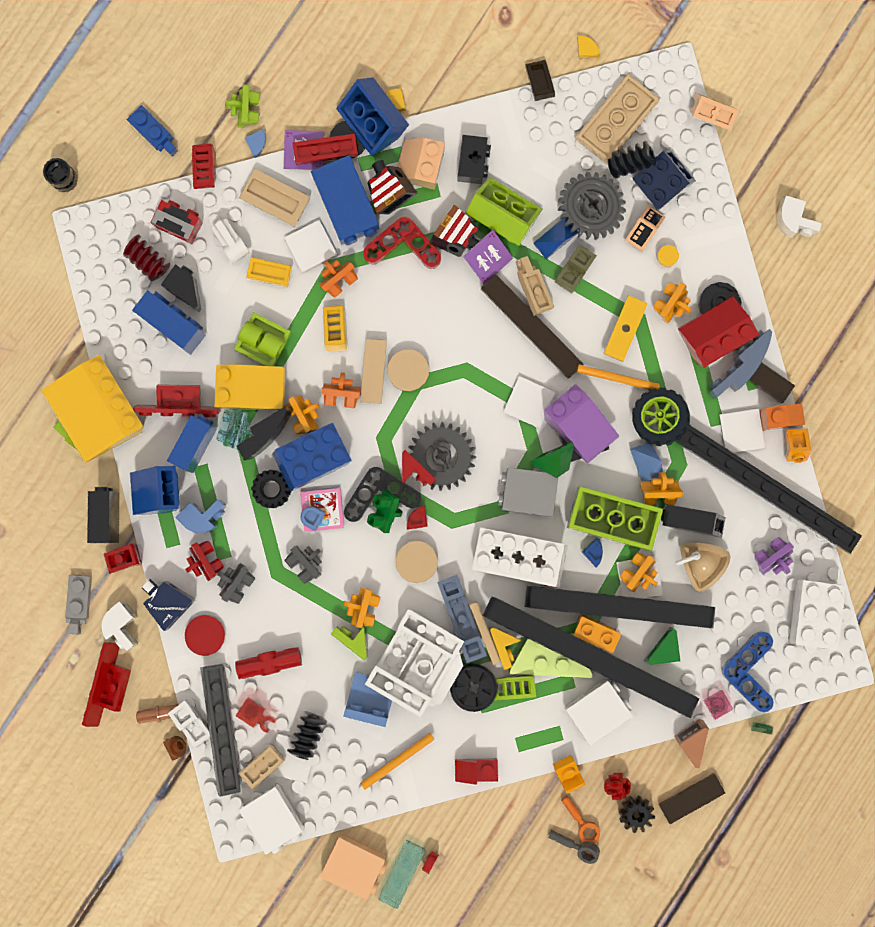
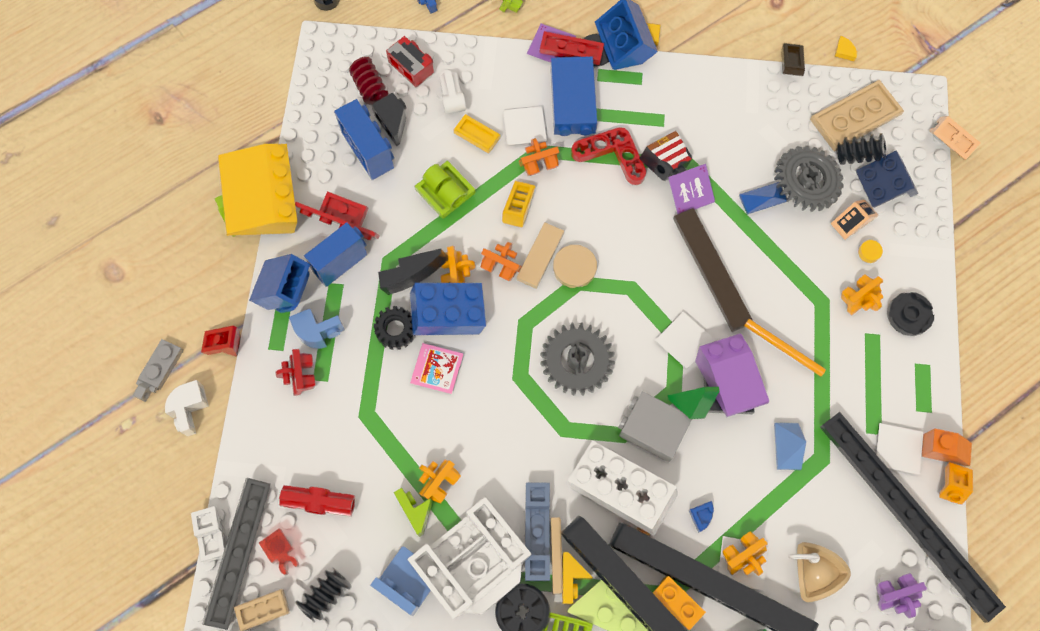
camera: 20 degrees right, 15 degrees down
(103, 516) = (220, 292): black brick -> none
(107, 687) = (143, 463): red bracket -> none
(154, 714) = (182, 512): nougat axle -> none
(166, 603) = (242, 400): dark blue torso -> none
(175, 747) = (183, 555): dark orange plate -> none
(202, 153) = (455, 24): red slope -> none
(204, 635) = (265, 449): red sticker -> none
(229, 591) = (310, 412): dark grey hips -> none
(236, 429) = (385, 258): clear light blue hips -> none
(249, 387) = (413, 223): yellow slope -> none
(256, 142) = (511, 25): medium blue tile -> none
(274, 197) = (508, 73): tan piece -> none
(297, 556) = (399, 422): dark grey hips -> none
(312, 517) = (424, 371): medium blue tile -> none
(382, 484) = (506, 366): black beam -> none
(386, 511) = (501, 390): green hips -> none
(389, 188) = (619, 97): torso -> none
(411, 465) = (544, 353): red slope -> none
(416, 562) = (512, 455): tan tile -> none
(417, 519) = (529, 412): red tile -> none
(422, 161) = (657, 88): light nougat slope -> none
(473, 147) = (706, 101): black brick -> none
(503, 211) = (720, 154): lime slope -> none
(534, 287) = (727, 232): tan hinge -> none
(575, 268) = (773, 231): olive slope -> none
(620, 531) = (752, 482): lime brick -> none
(630, 317) = (814, 294): yellow tile -> none
(653, 398) = (812, 419): black wheel -> none
(661, 488) = (798, 471): light orange hips -> none
(693, 520) = (822, 520): black slope -> none
(718, 332) = (903, 337): red slope -> none
(748, 359) = (921, 381): sand blue slope -> none
(772, 383) = (944, 409): dark brown tile -> none
(791, 221) = (1005, 262): white brick -> none

